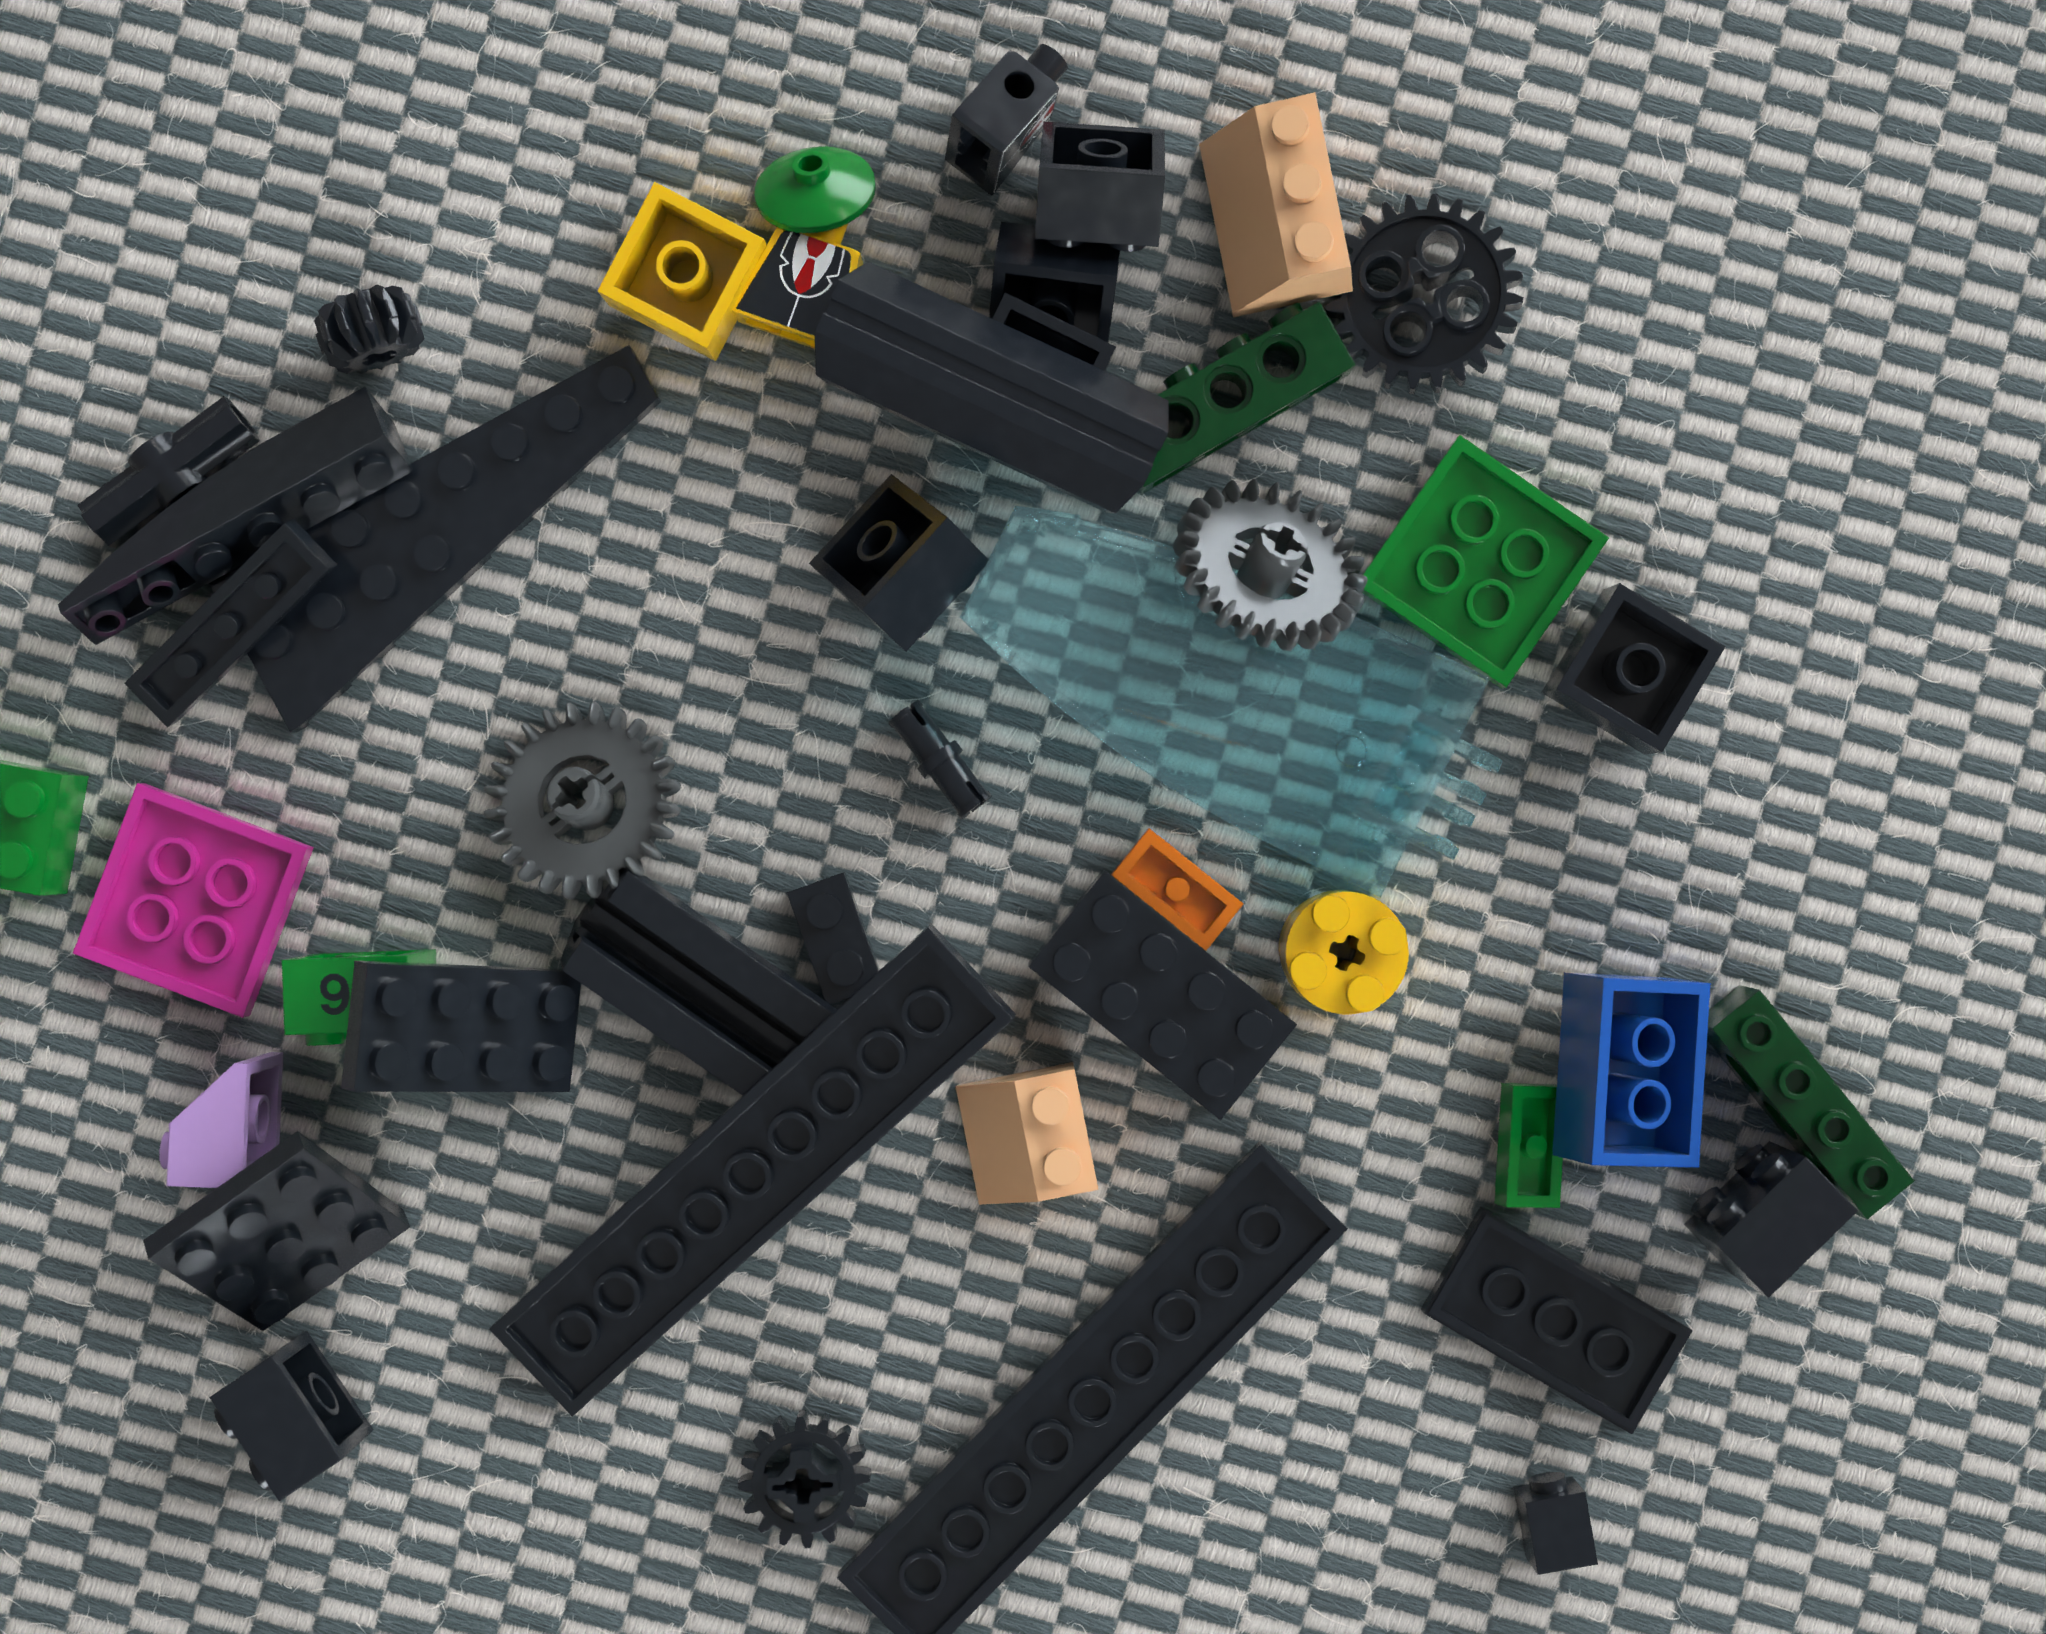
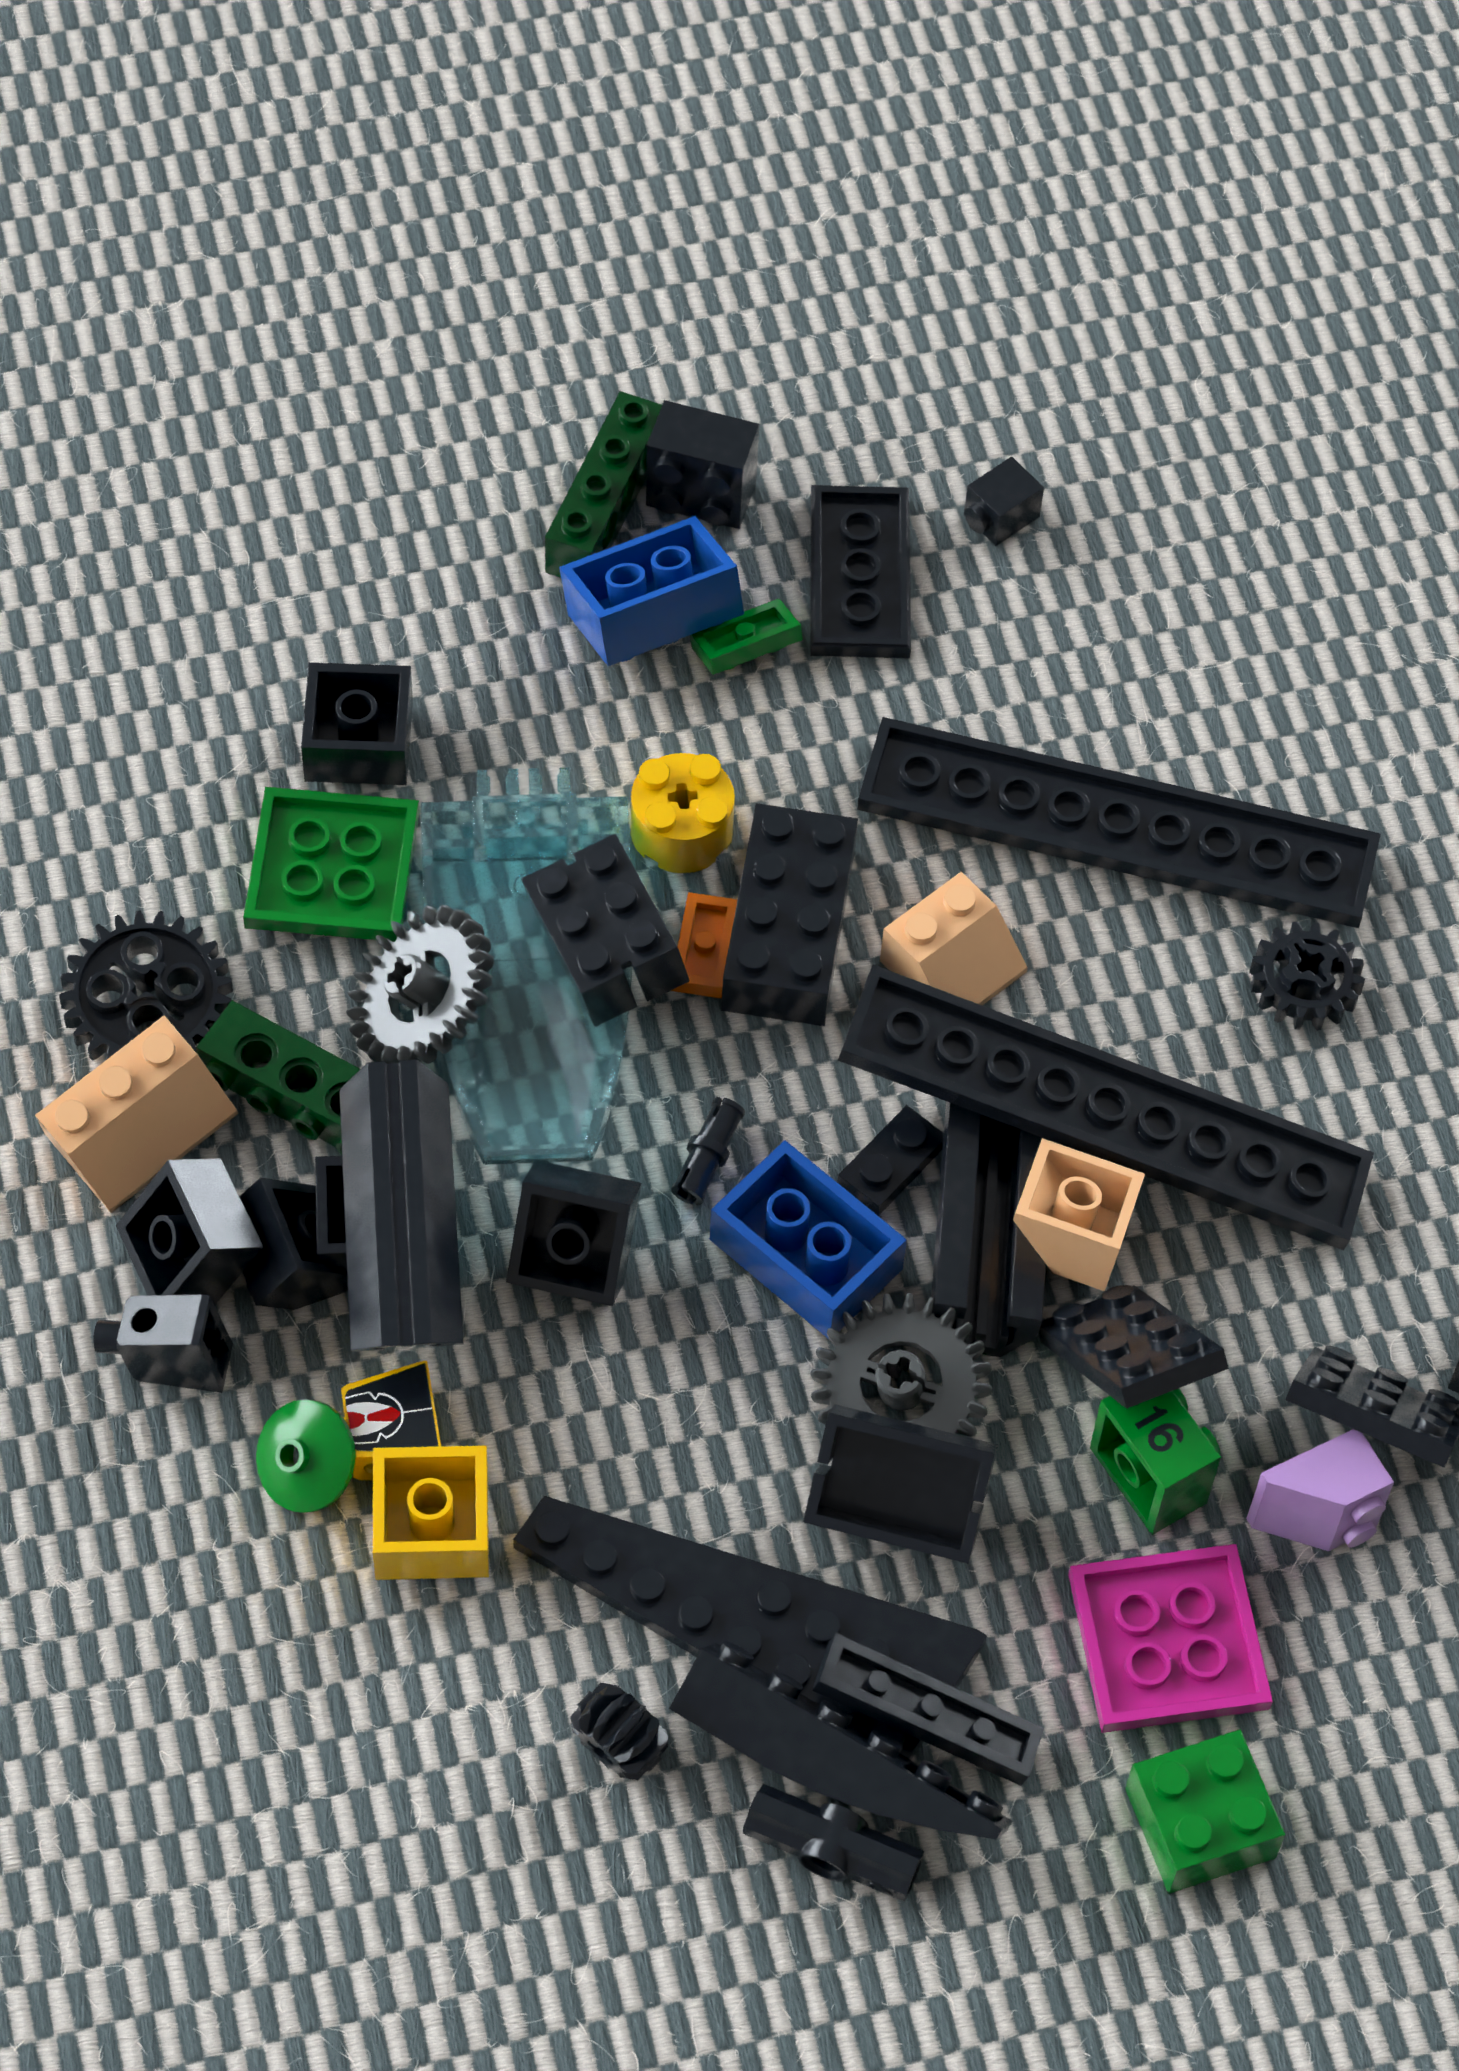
camera: 120 degrees left, 30 degrees down
(458, 728) = (900, 1483): none -> black piece
(649, 1074) = (1077, 1212): none -> light nougat slope
(775, 793) = (807, 1238): none -> blue brick
(1228, 781) = (602, 925): none -> black piece

